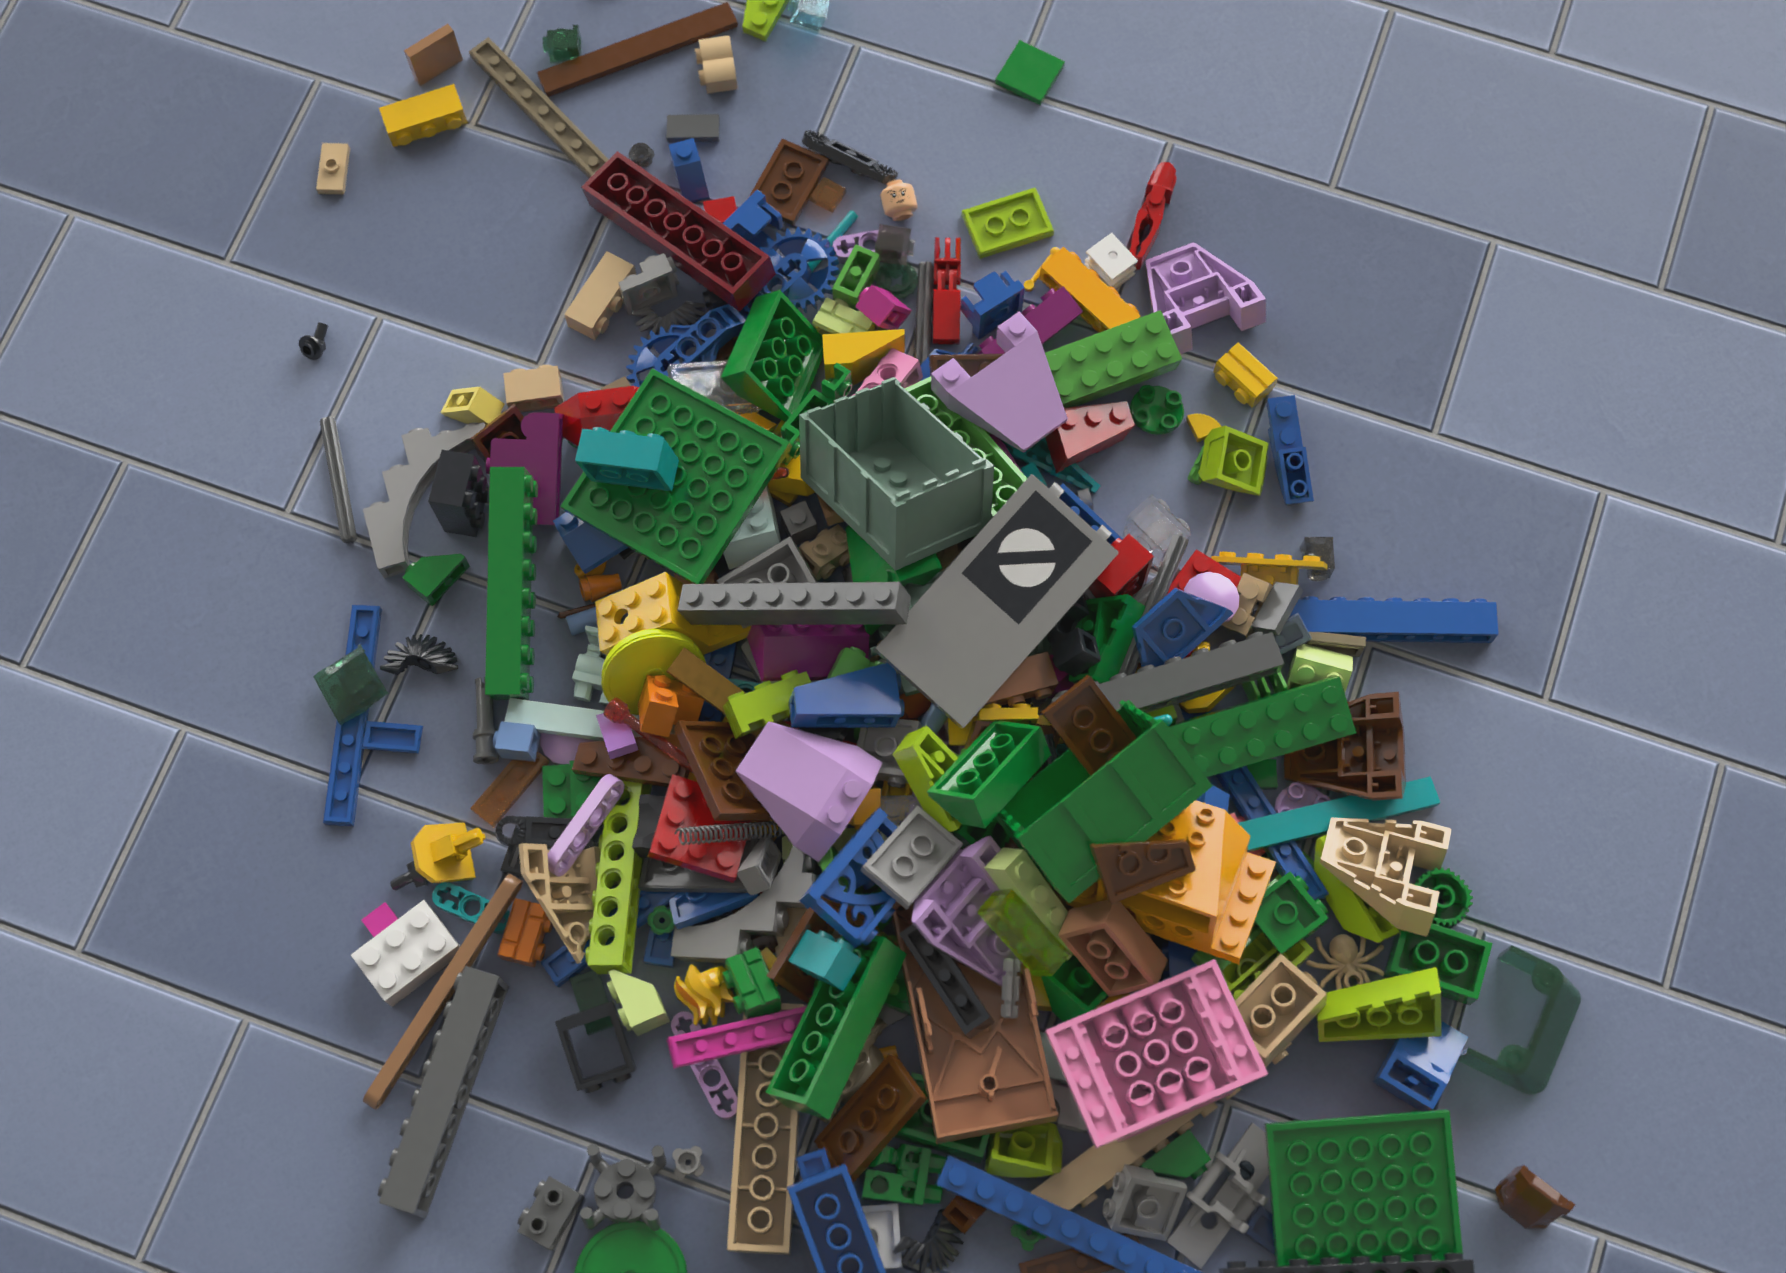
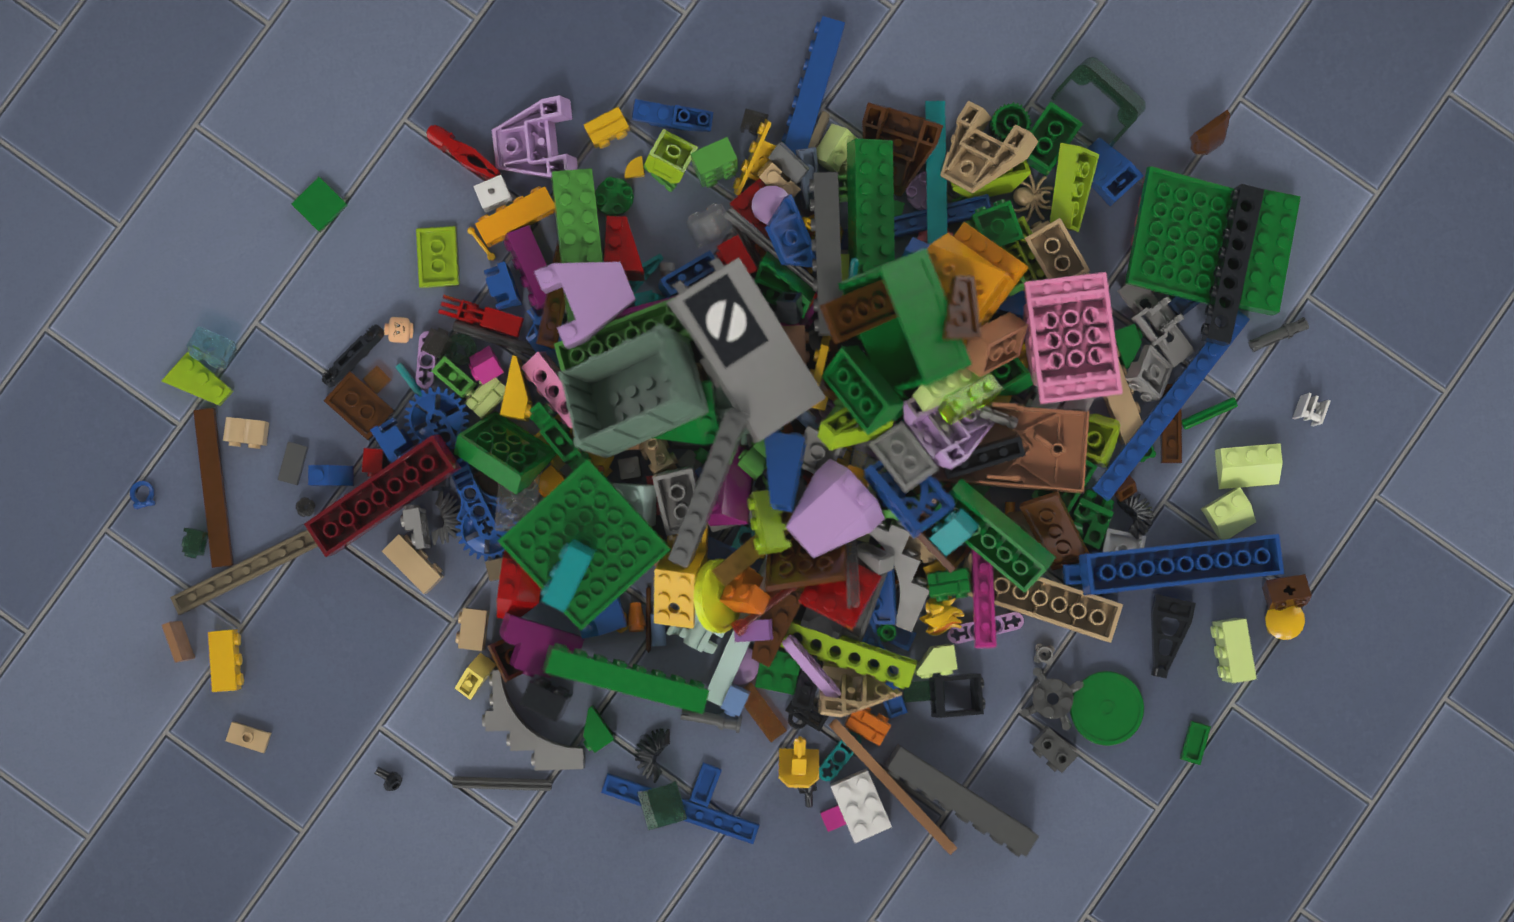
camera: 75 degrees left, 15 degrees up
(1243, 512) = (714, 162): none -> bright green brick

